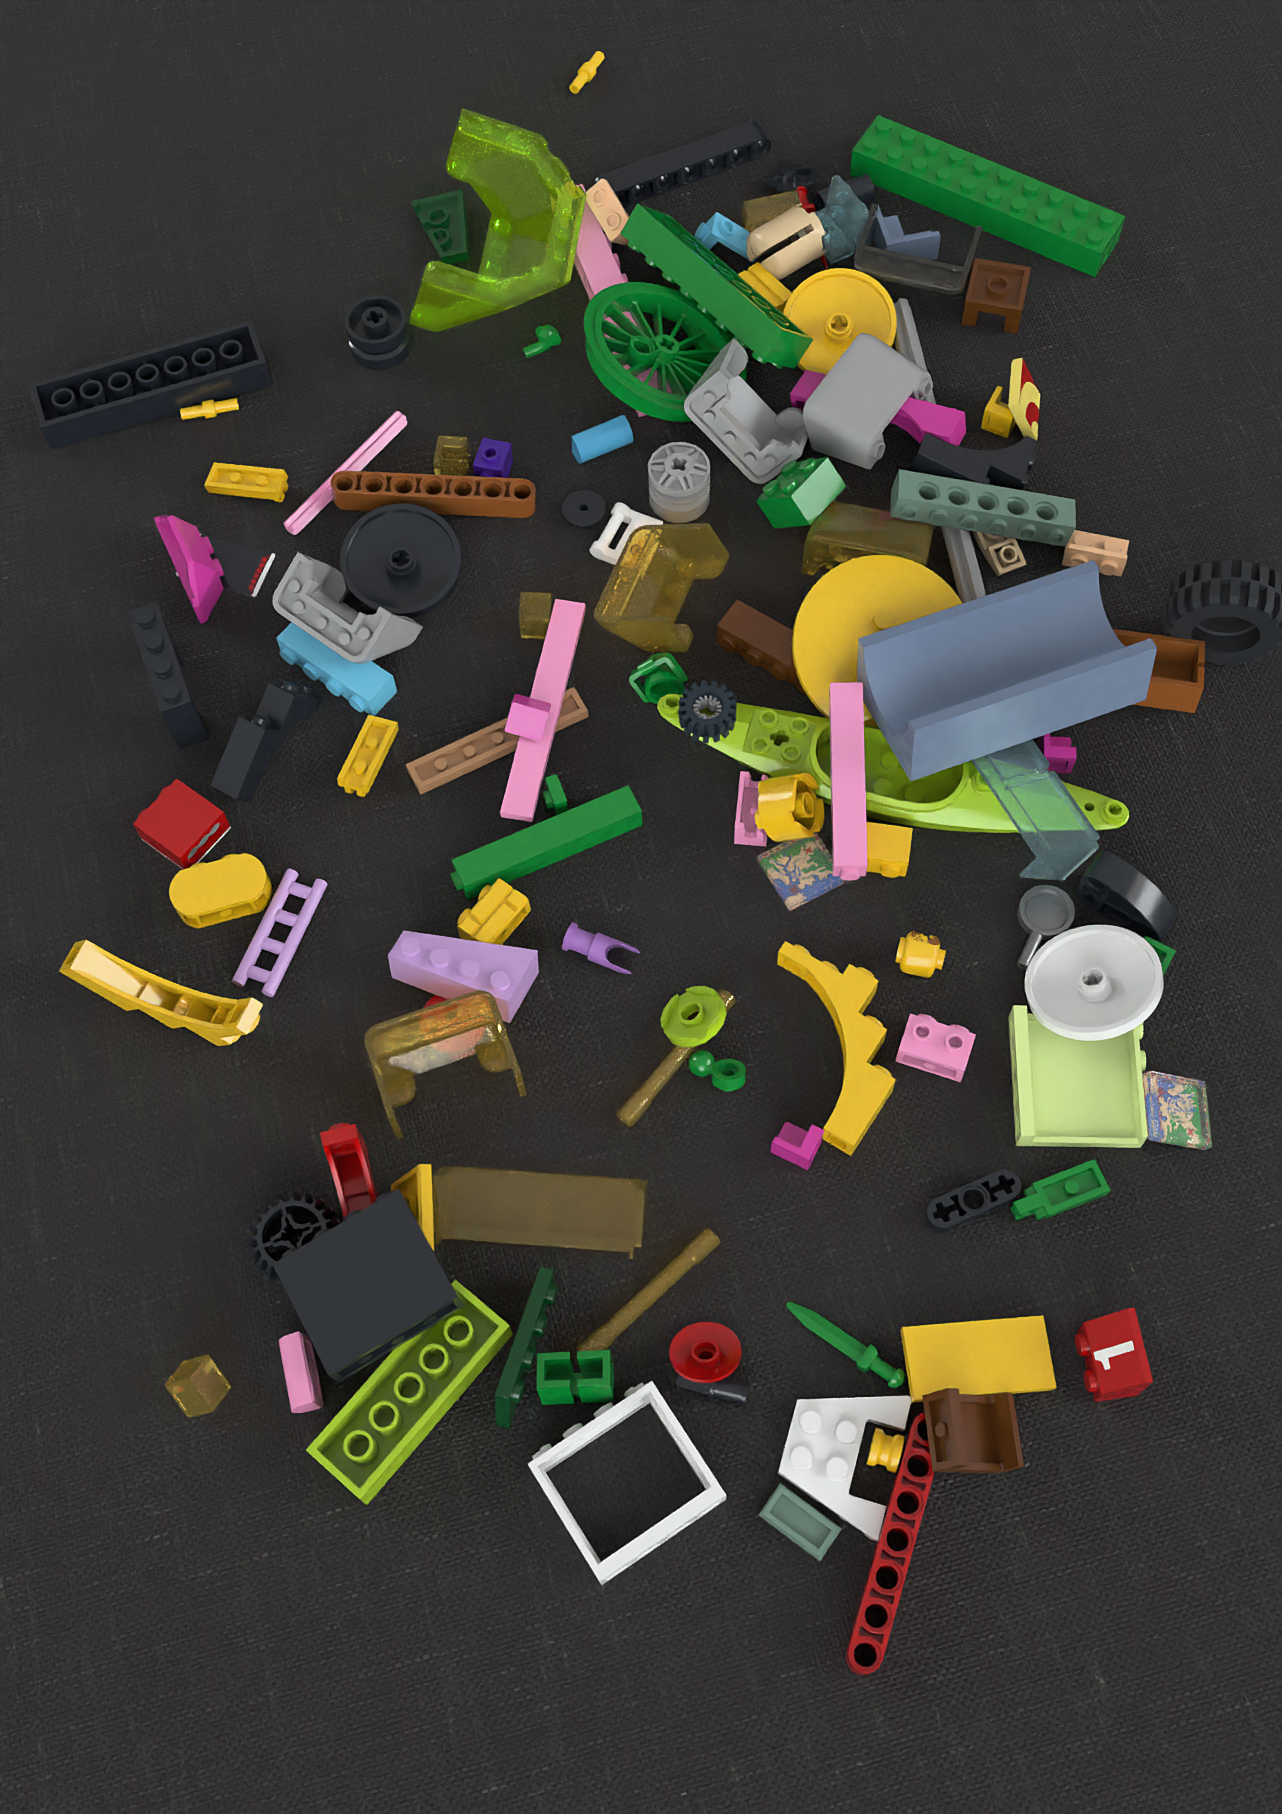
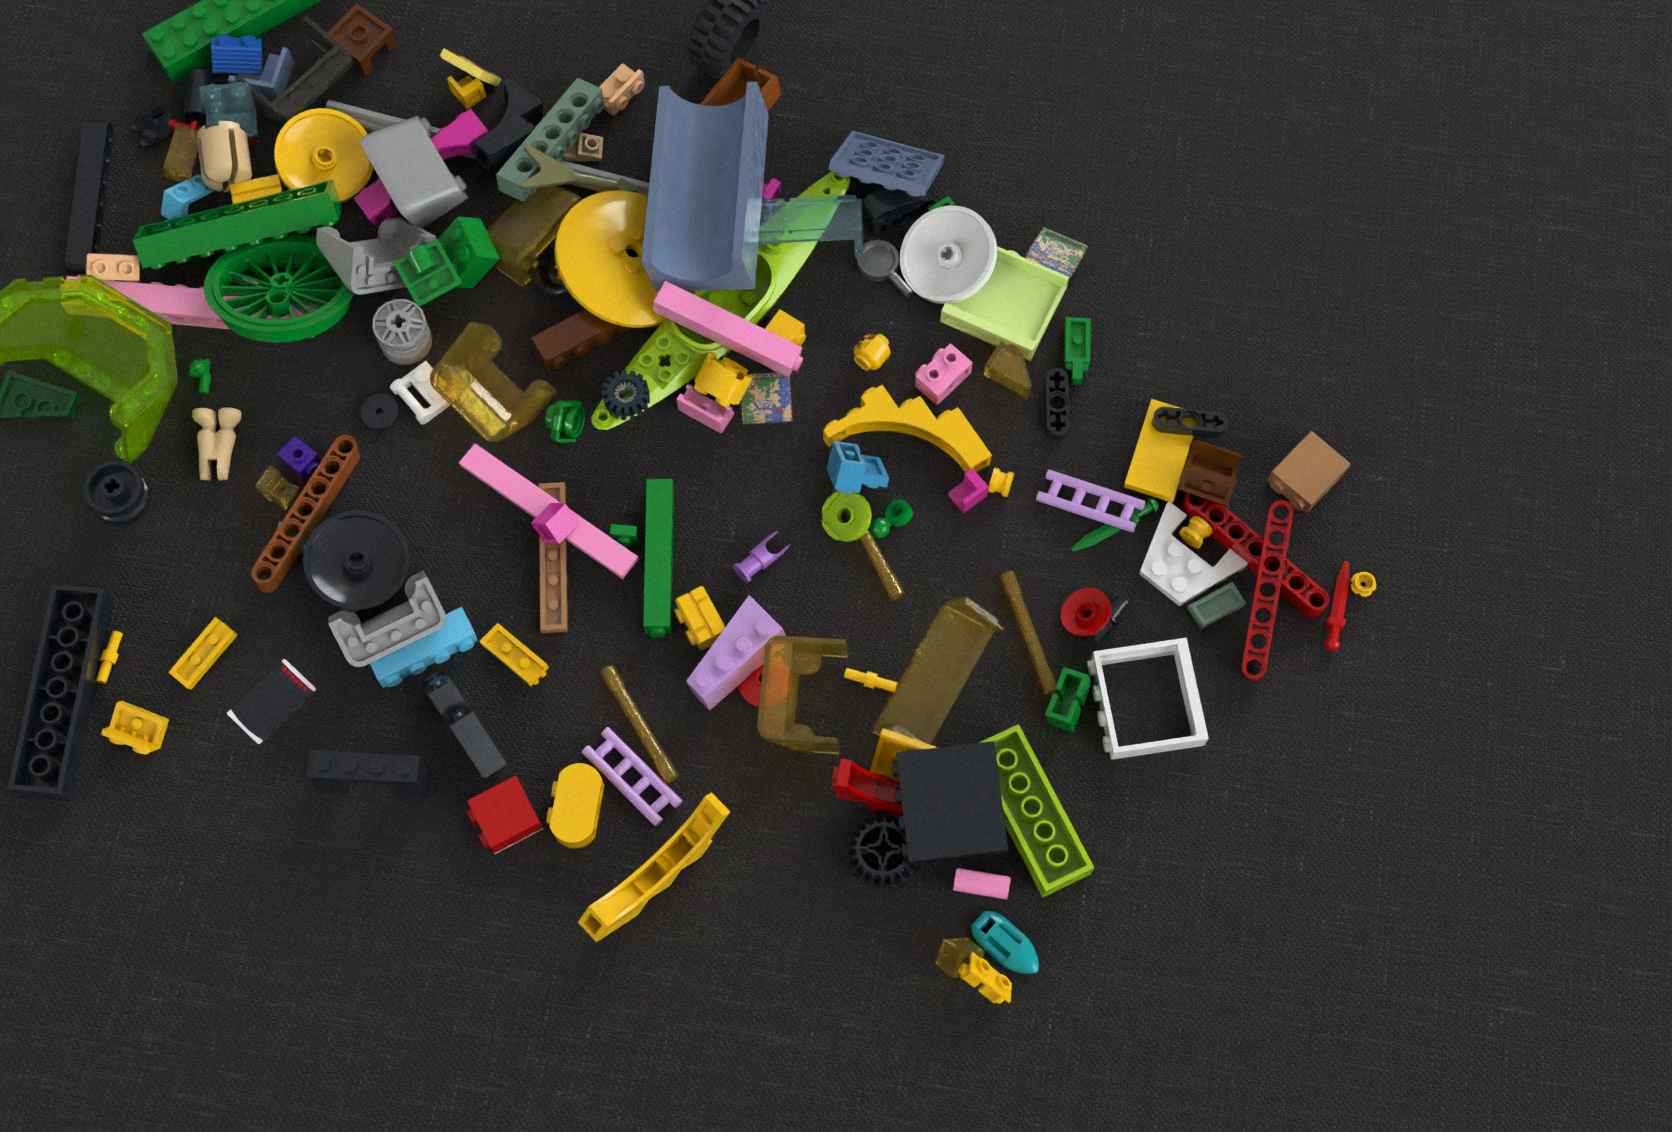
camera: 70 degrees left, 5 degrees up
(141, 462) = (136, 728): none -> yellow bracket
(178, 1428) = (995, 985): none -> yellow hinge
(193, 563) = (260, 724): dark pink wedge -> none
(238, 1436) = (1005, 943): none -> teal piece
(310, 952) = (659, 758): none -> clear yellow piece
(355, 462) = (239, 573): bright pink axle -> none
(474, 386) = (215, 445): none -> tan piece
(504, 1135) = (870, 680): none -> yellow bar
(523, 1349) = (1032, 724): dark green wing -> none
(534, 614) = (461, 484): clear yellow panel -> none
(601, 439) = (326, 371): dark azure brick -> none
(747, 985) = (851, 470): none -> dark azure brick
(750, 464) = (427, 272): none -> green plate
(828, 1175) = (1000, 482): none -> yellow wheel
(847, 1312) = (1096, 514): none -> lavender bar
(855, 1698) = (1335, 621): none -> red sword
(857, 1583) = (1272, 578): none -> red beam
(906, 200) = (236, 55): none -> blue brick
(937, 525) = (555, 173): none -> olive piece
(939, 1716) = (1363, 577): none -> yellow plate
(986, 1120) = (1009, 369): none -> clear yellow slope
(1012, 1355) = (1181, 429): none -> black beam
(1048, 1570) = (1308, 472): none -> medium nougat brick
(1114, 1356) = (1198, 368): red slope -> none
(1168, 857) = (886, 163): none -> sand blue plate

